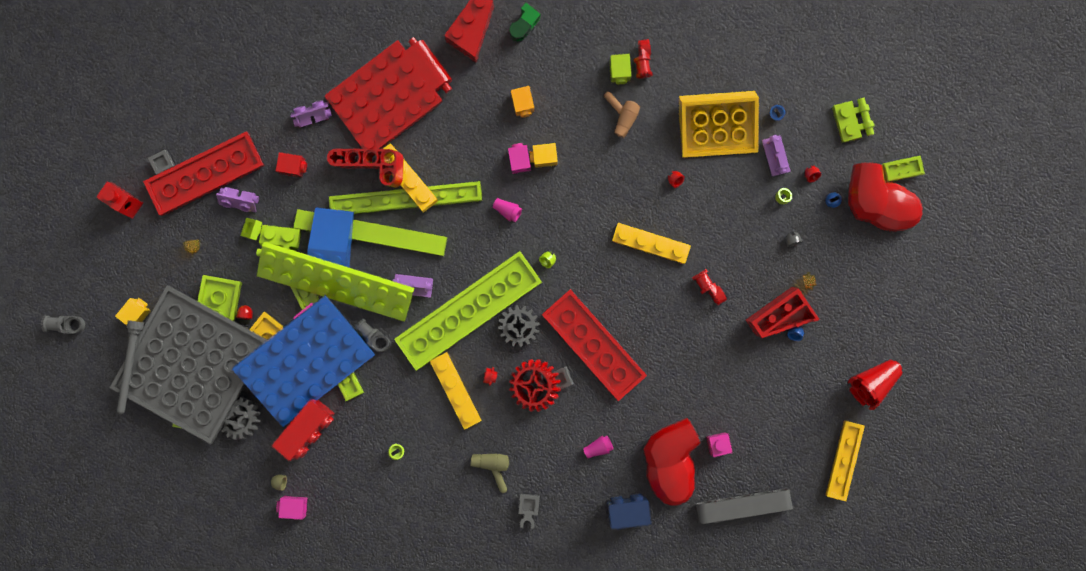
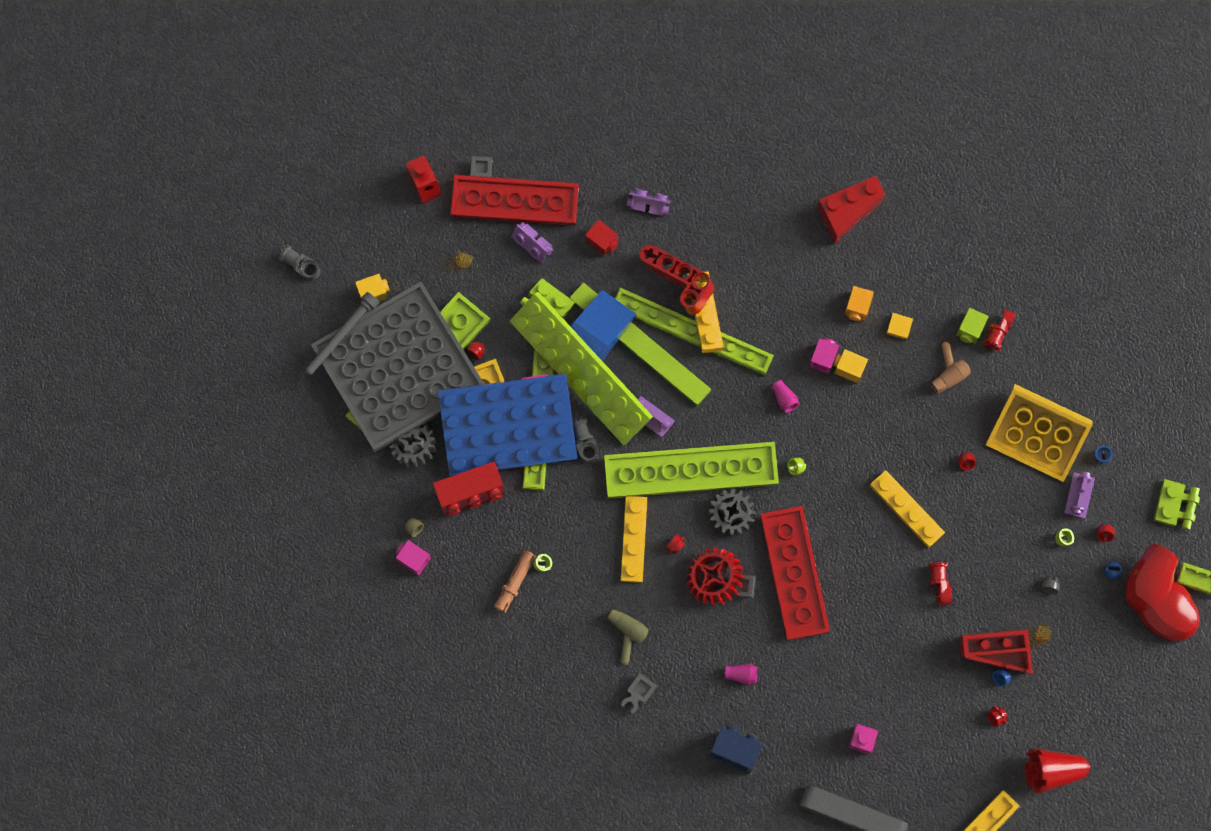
camera: 30 degrees right, 10 degrees down
(251, 229) = (529, 276): lime plate -> none
(382, 479) = (510, 590): none -> nougat pin
(390, 93) = (736, 225): red plate -> none
(525, 24) = (904, 233): leg -> none
(564, 100) = (899, 326): none -> yellow tile
(669, 463) = (803, 729): red piece -> none
(809, 366) = (997, 716): none -> red plate

